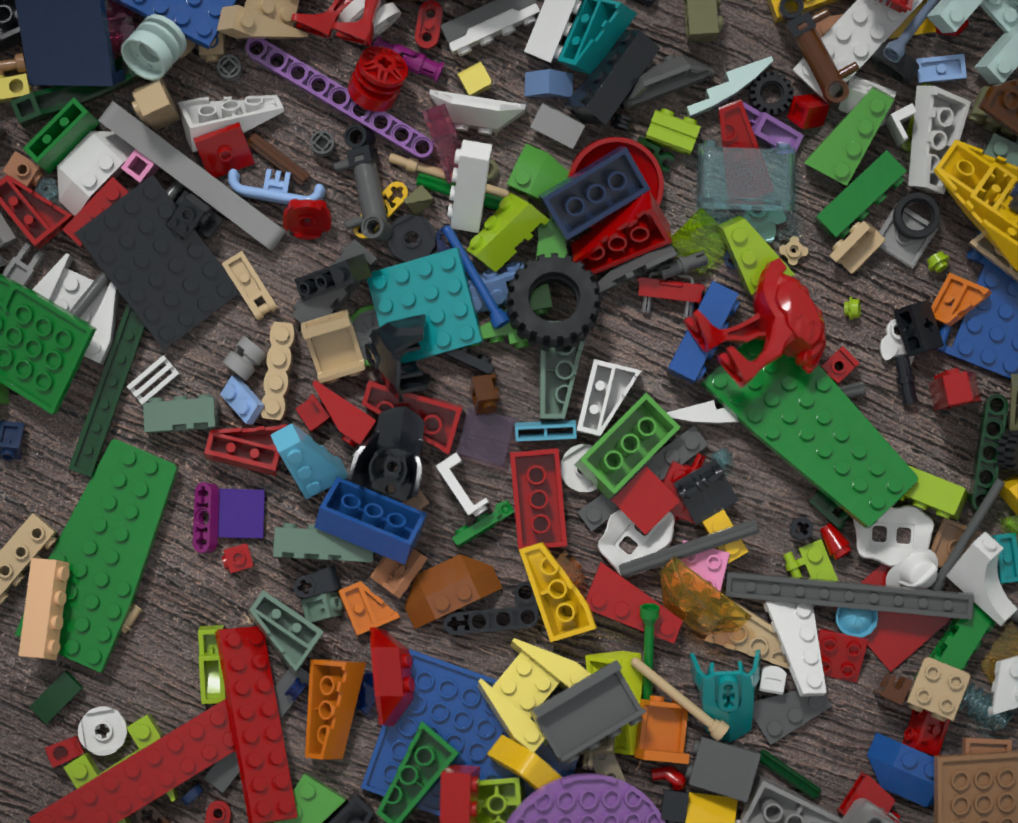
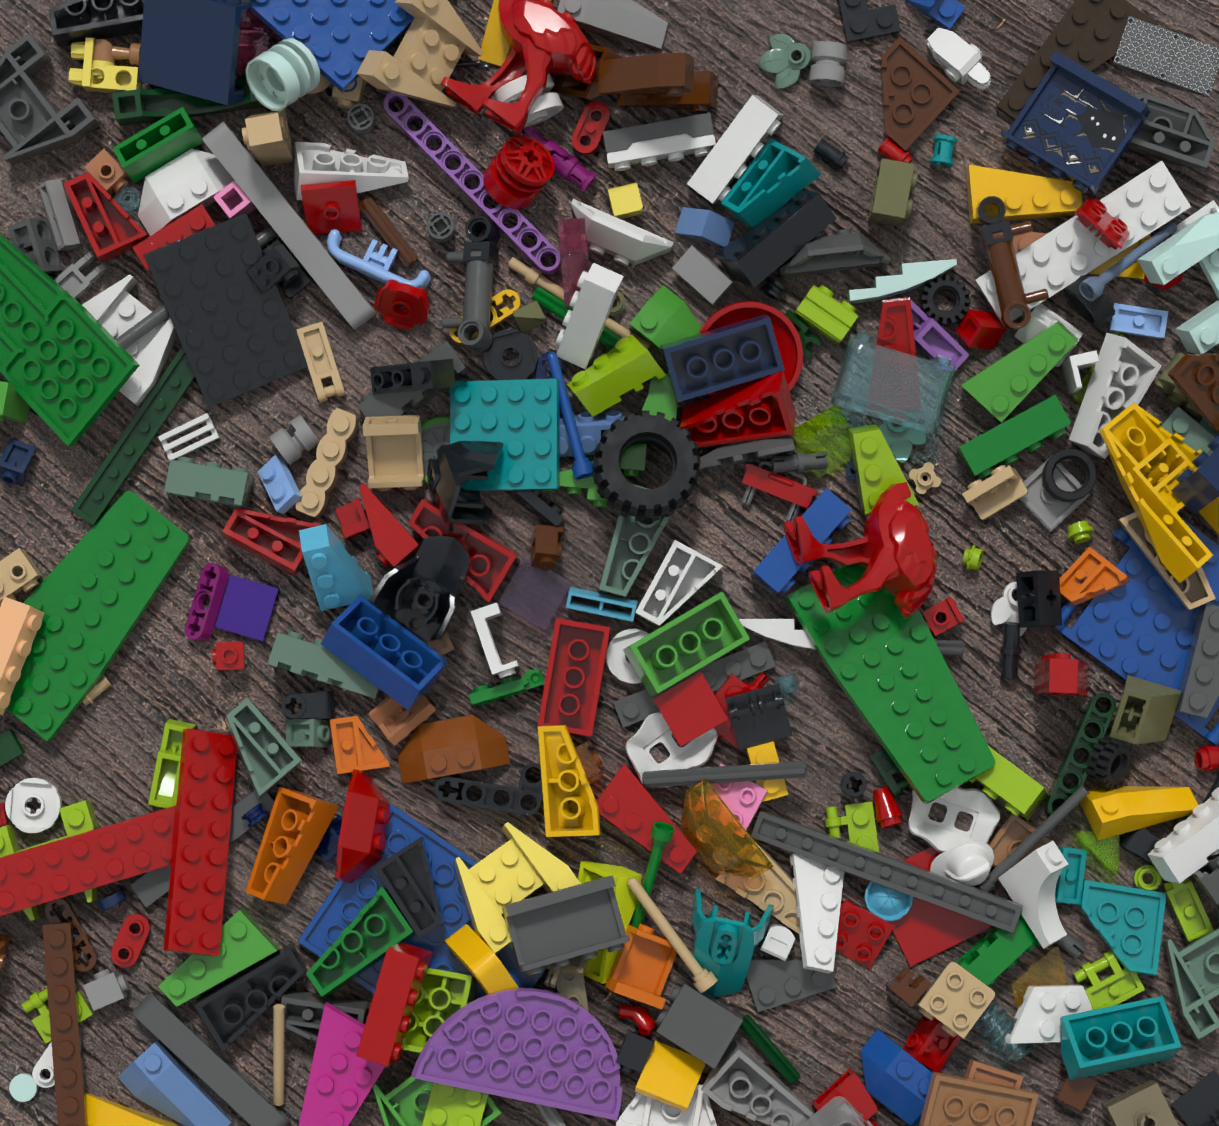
camera: 15 degrees right, 0 degrees up
(447, 714) = (413, 886): none -> black wedge

